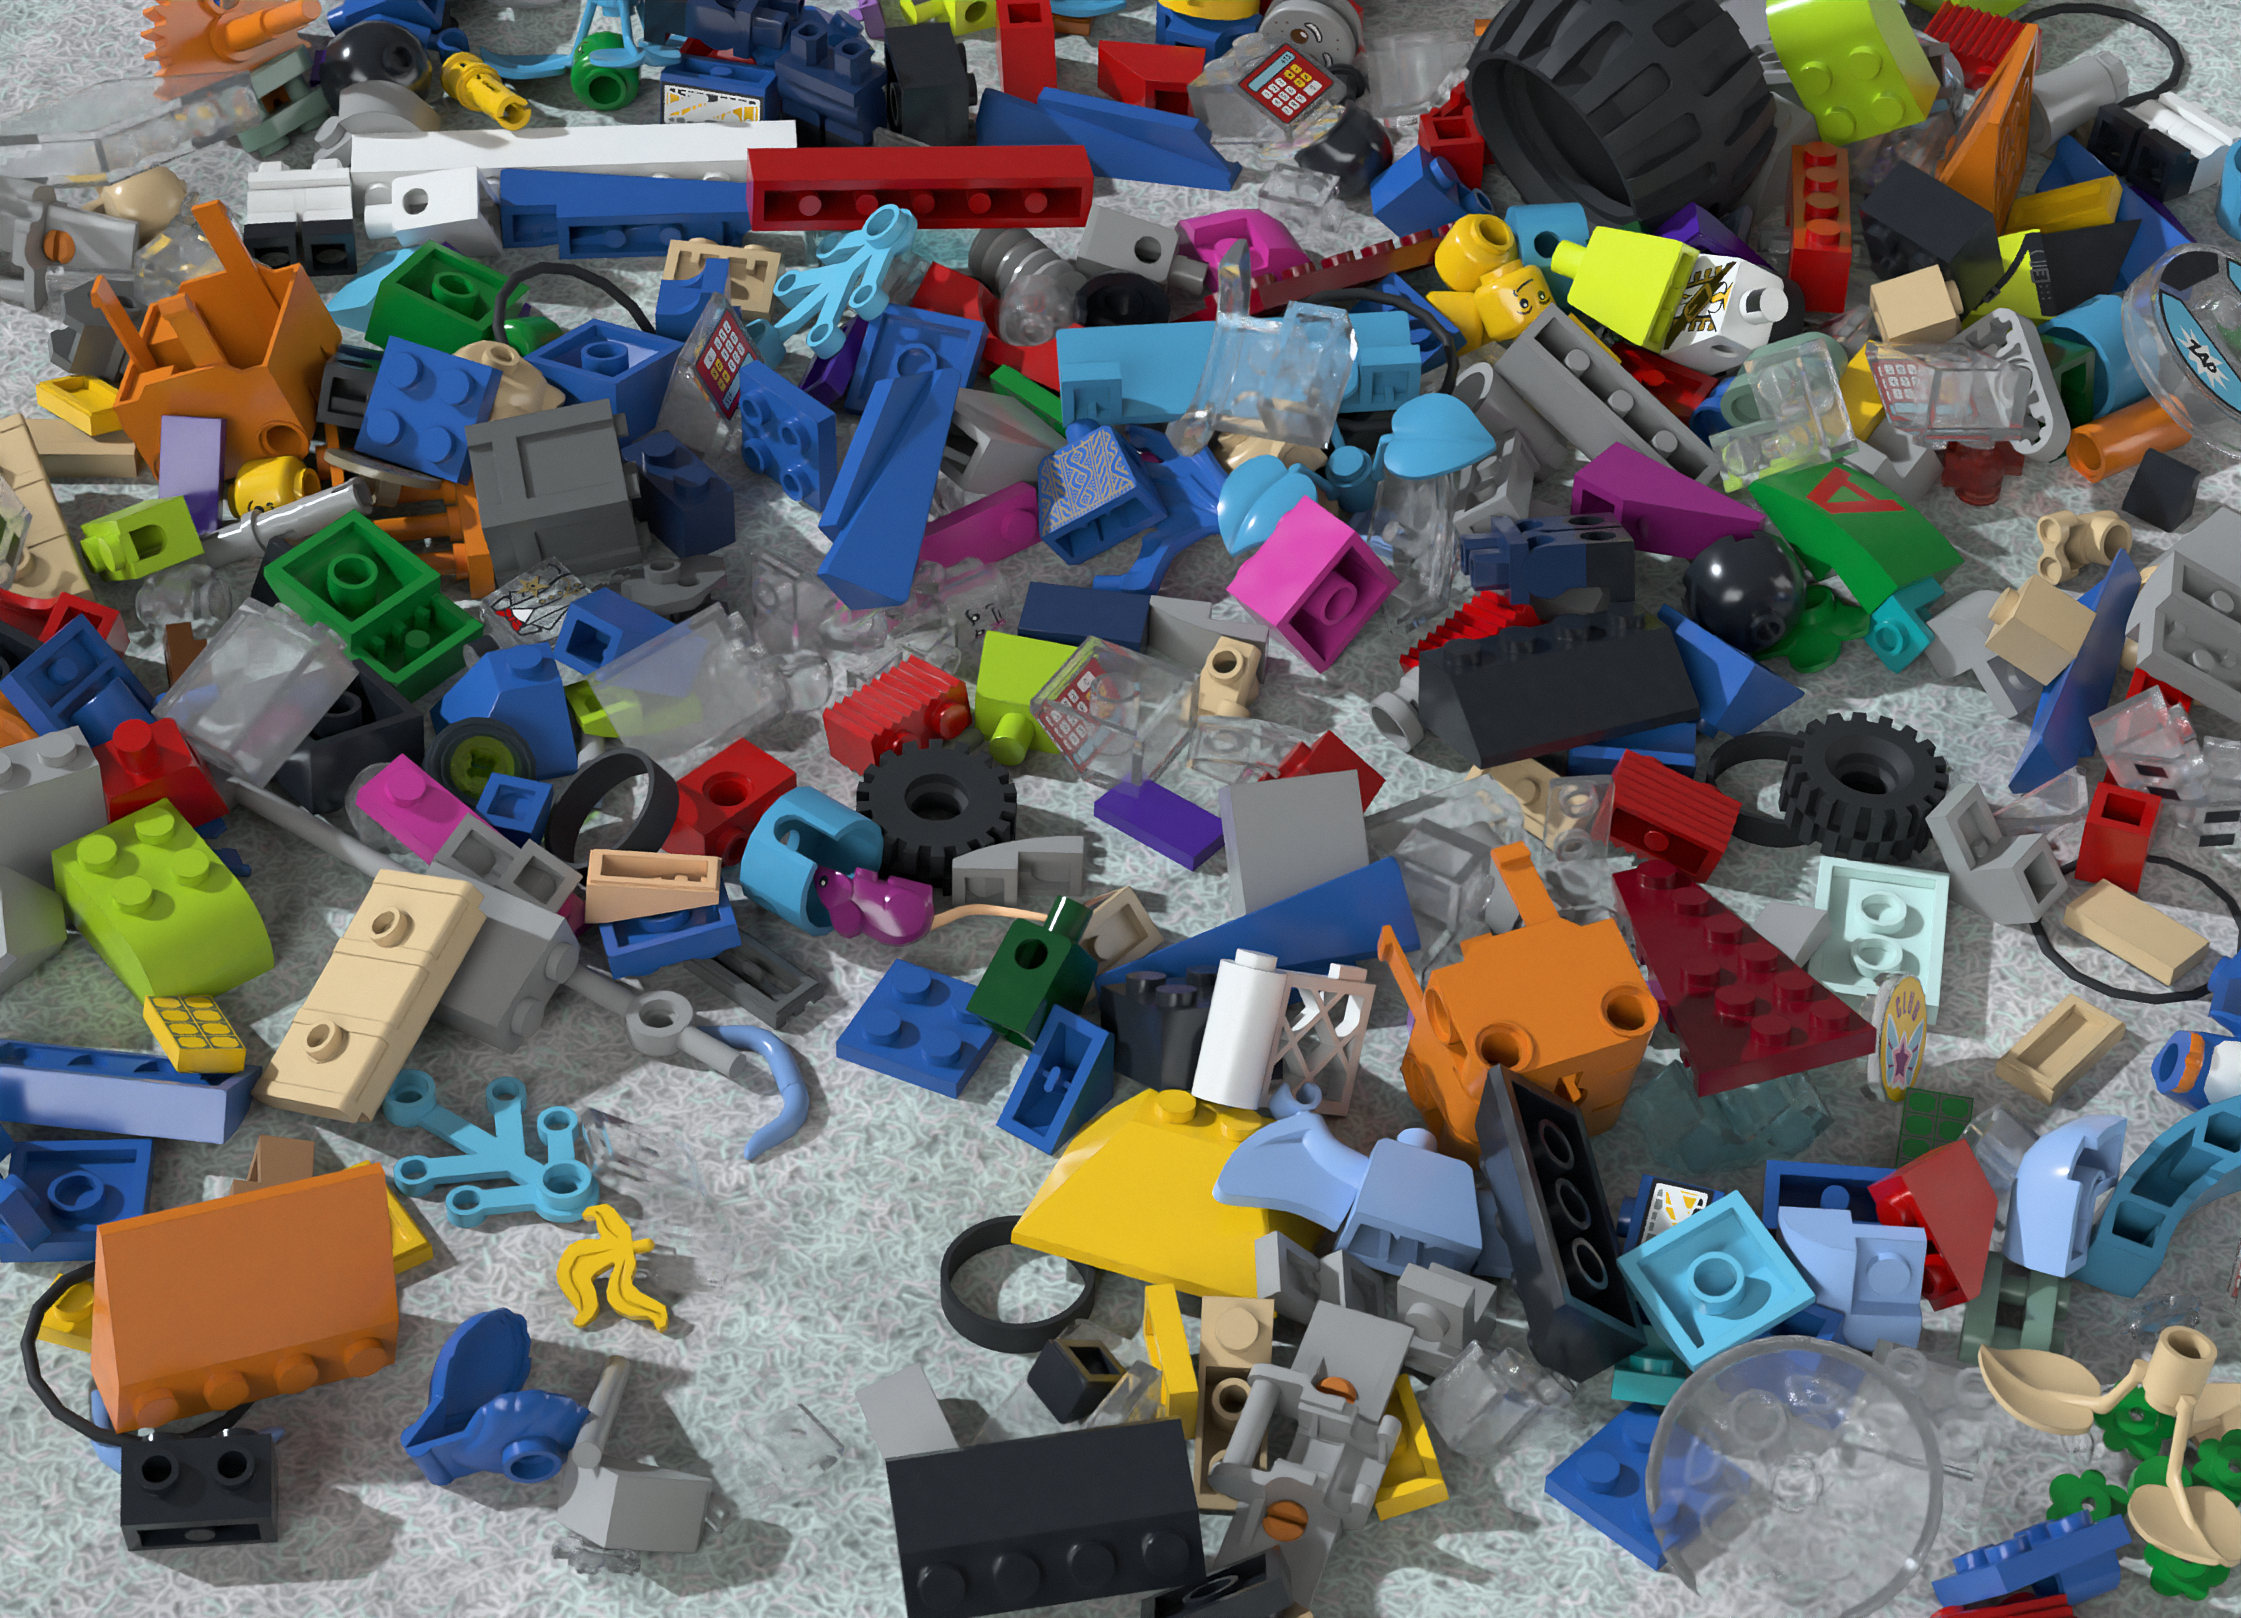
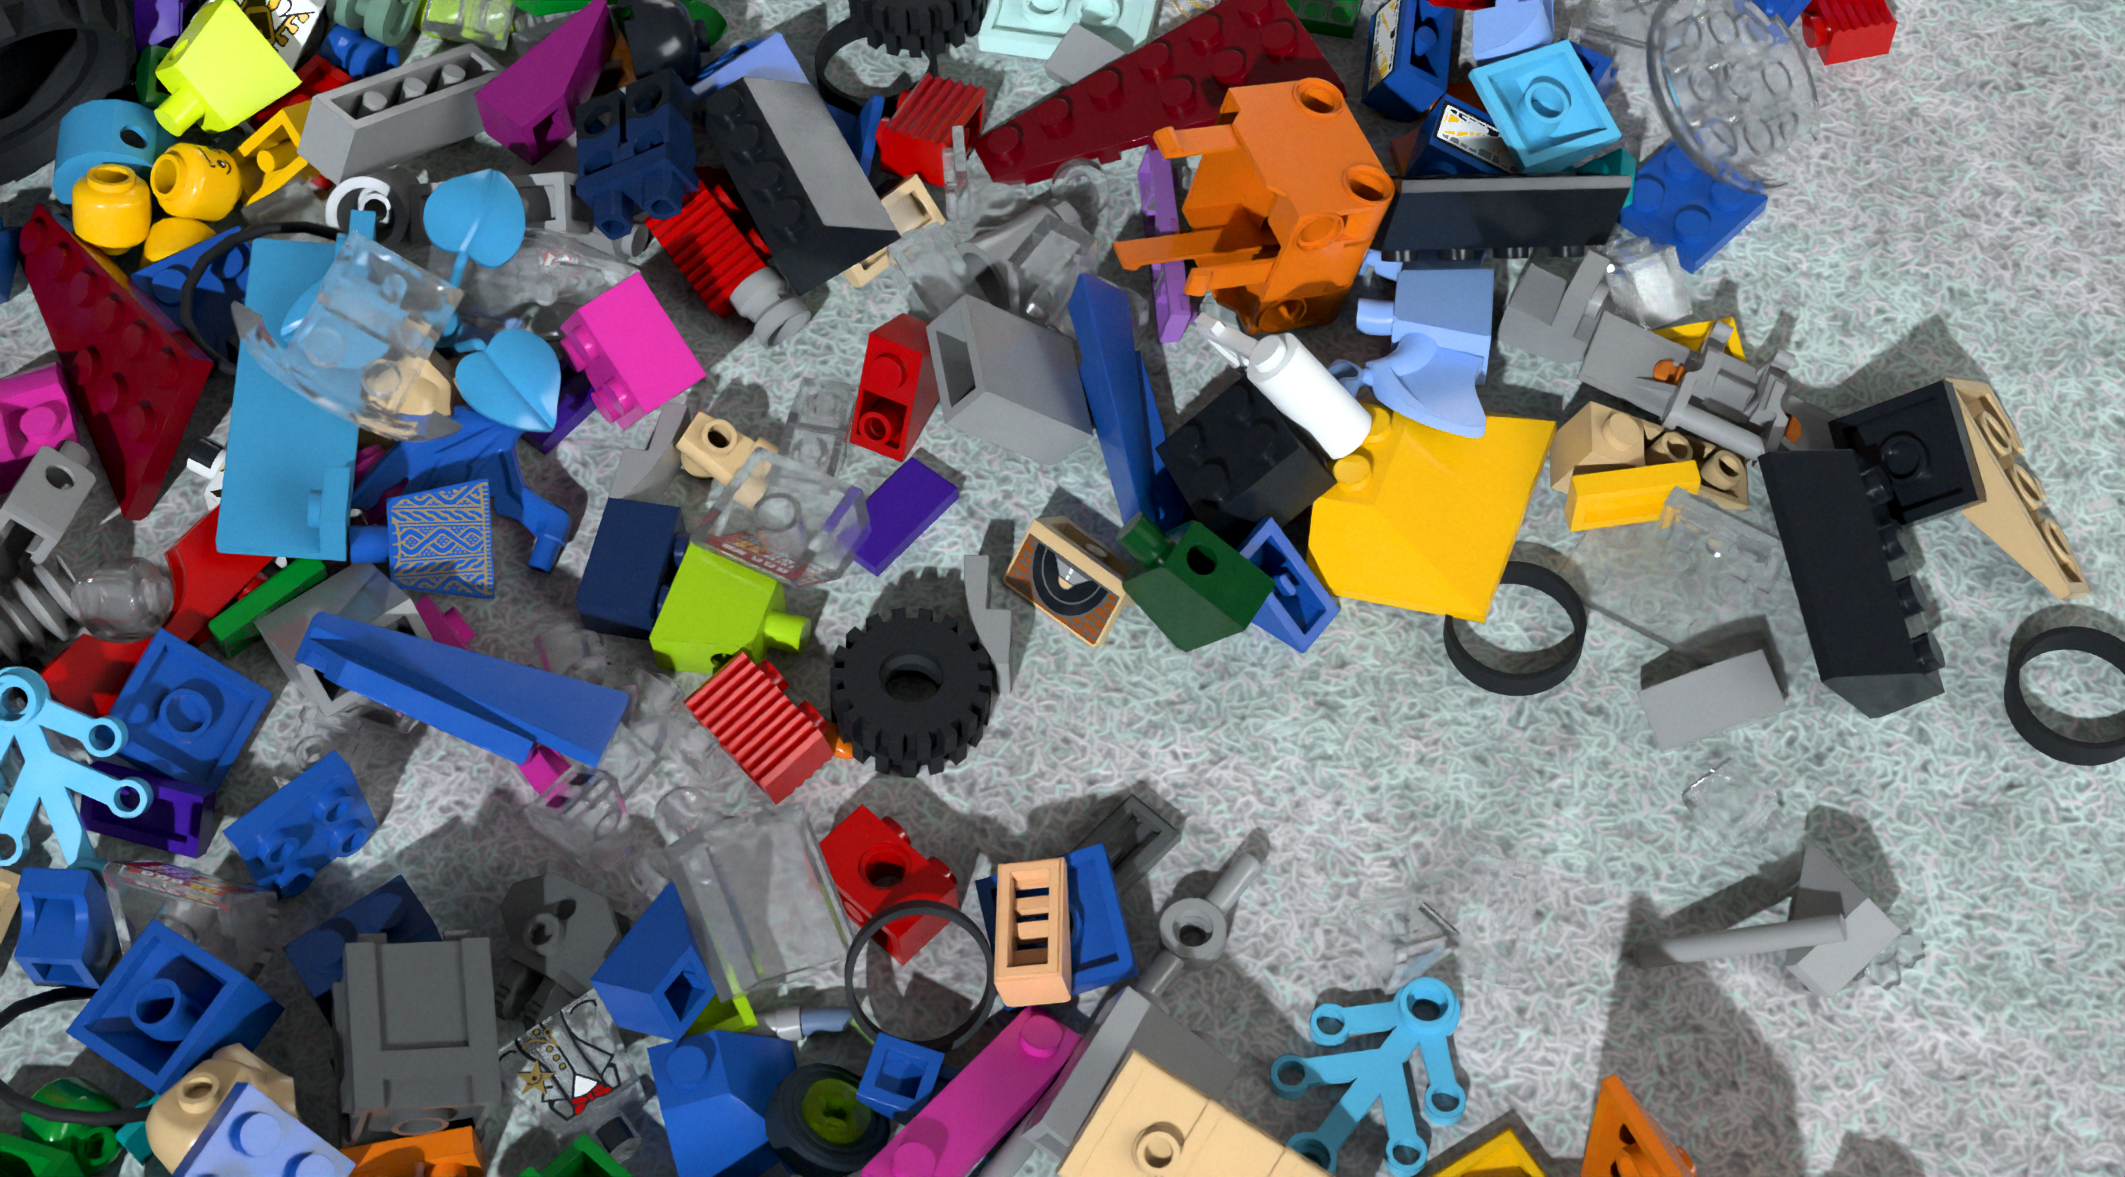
camera: 85 degrees left, 15 degrees up
(482, 1417) = (1786, 1006): blue animal -> none
(494, 860) = (1019, 1069): light grey slope -> none
(592, 1257) = (1520, 955): yellow piece -> none
(785, 1074) = (1253, 825): medium blue animal -> none
(820, 834) = (984, 797): dark azure piece -> none
(892, 910) = (1040, 725): magenta animal -> none
(918, 1030) = (1183, 708): blue plate -> none
(1074, 1377) = (1640, 573): black slope -> none
(1120, 299) = (128, 521): black helmet -> none
(1301, 1279) = (1526, 395): light grey slope -> none

